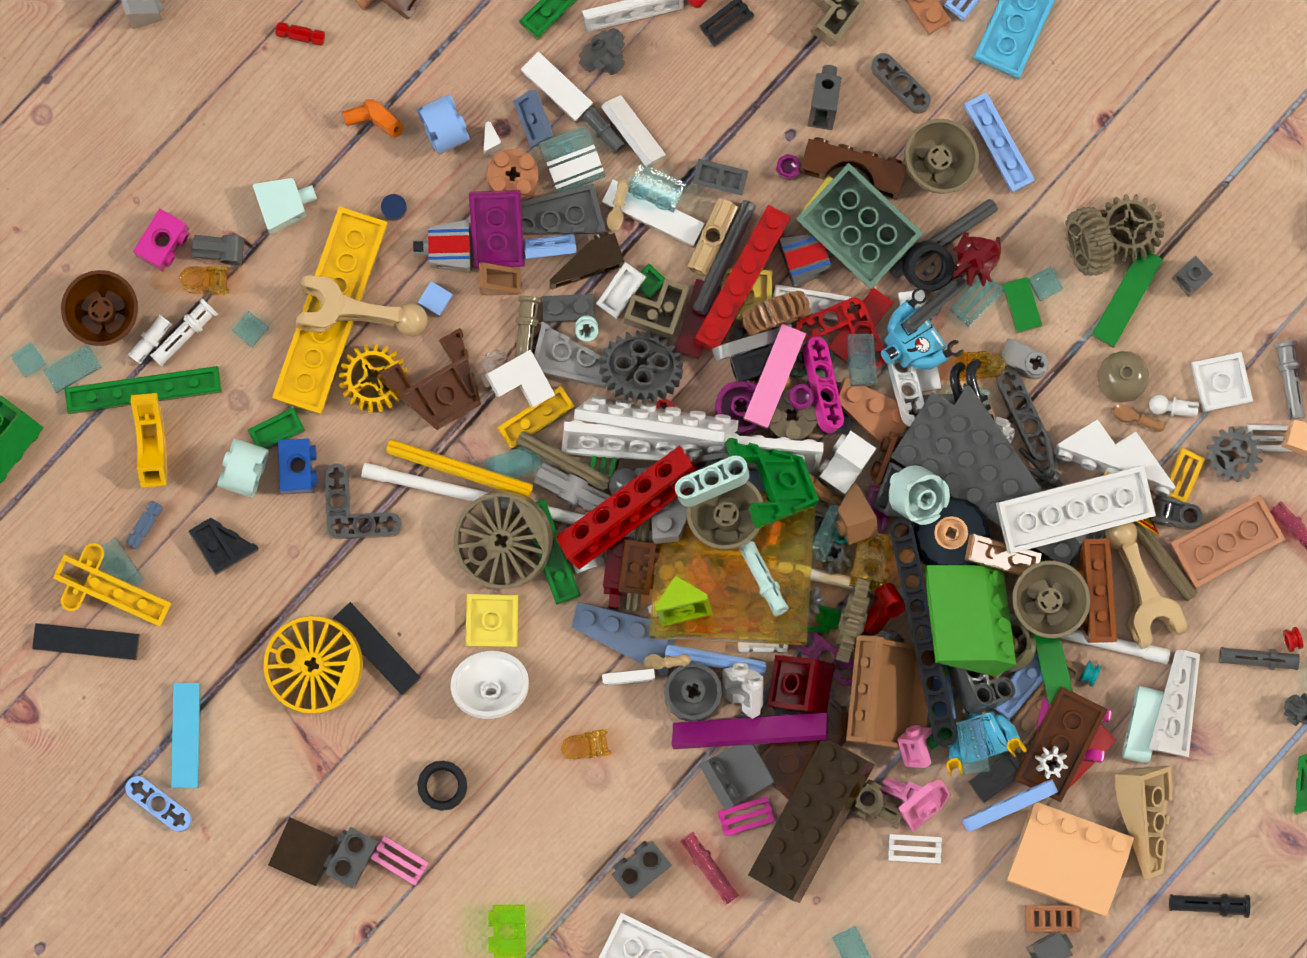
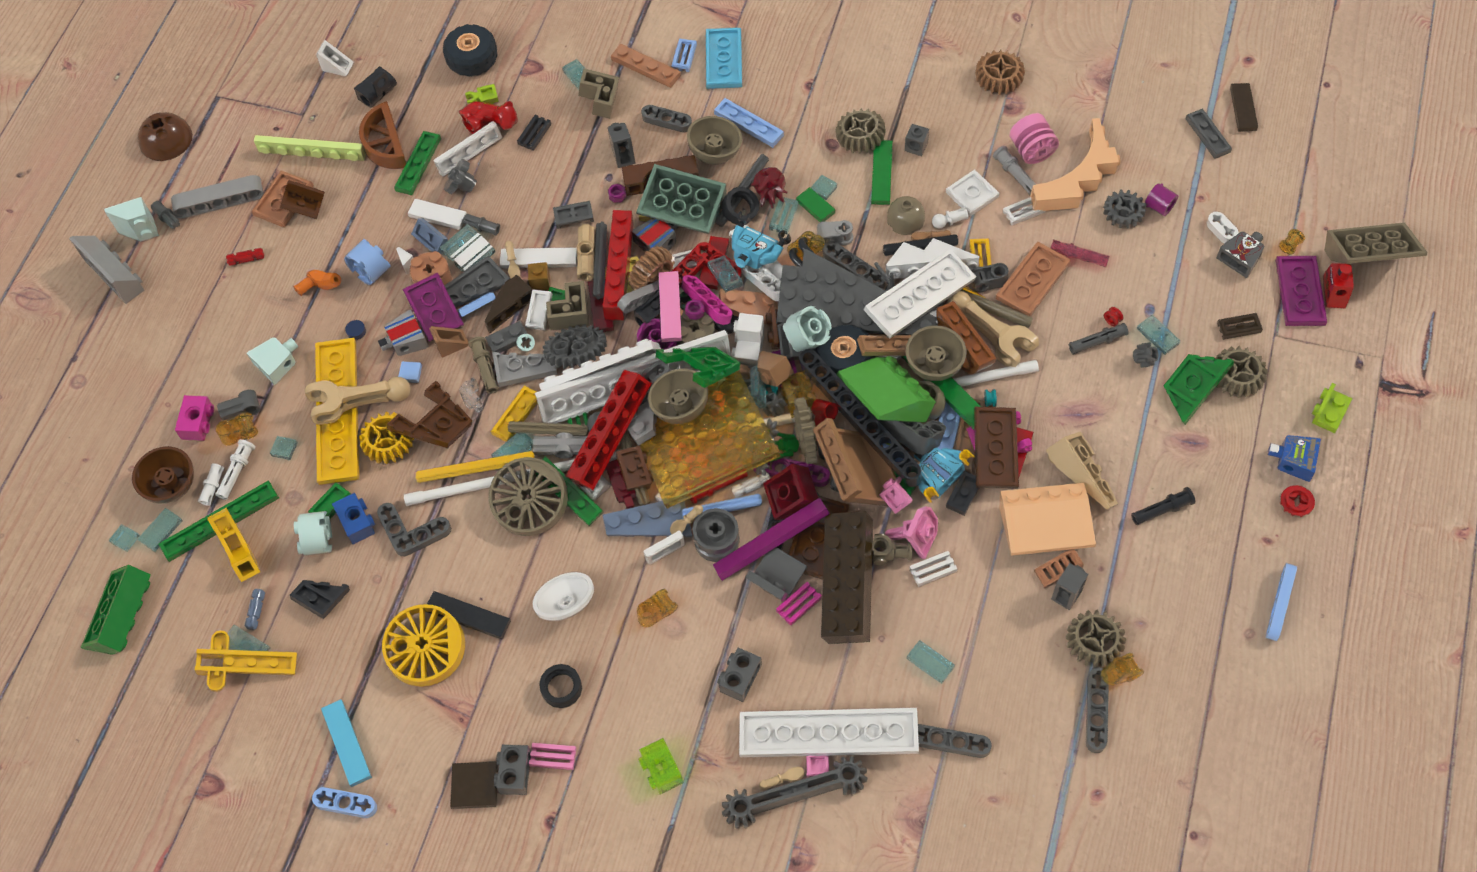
camera: 15 degrees left, 20 degrees down
(86, 641) = (240, 711): black tile -> none
(491, 620) = (546, 557): light yellow tile -> none
(521, 372) = (493, 383): white tile -> none
(633, 130) = (501, 215): white tile -> none
(640, 245) = (539, 276): none -> pearl gold brick
(656, 188) = (533, 240): clear light blue bracket -> none
(682, 603) = (677, 463): lime slope -> none
(712, 872) = (781, 645): clear pink pin -> none
(720, 470) = (657, 377): light aqua beam -> none
(743, 687) = (751, 513): white cylinder -> none
(767, 585) = (733, 429): light aqua pin -> none
(934, 304) = (755, 222): dark grey axle -> none
(973, 746) = (936, 473): clear light blue plate -> none
(1009, 805) = (984, 503): light blue beam -> none
(1048, 755) = (1000, 453): white gear -> none
(1089, 241) = (838, 143): dark tan gear -> none
(1119, 425) = (890, 249): none -> black axle
(1142, 724) = (1045, 413): light aqua beam -> none
(1176, 711) = (1063, 394): white wing -> none
(1231, 465) = (1013, 223): dark grey gear -> none

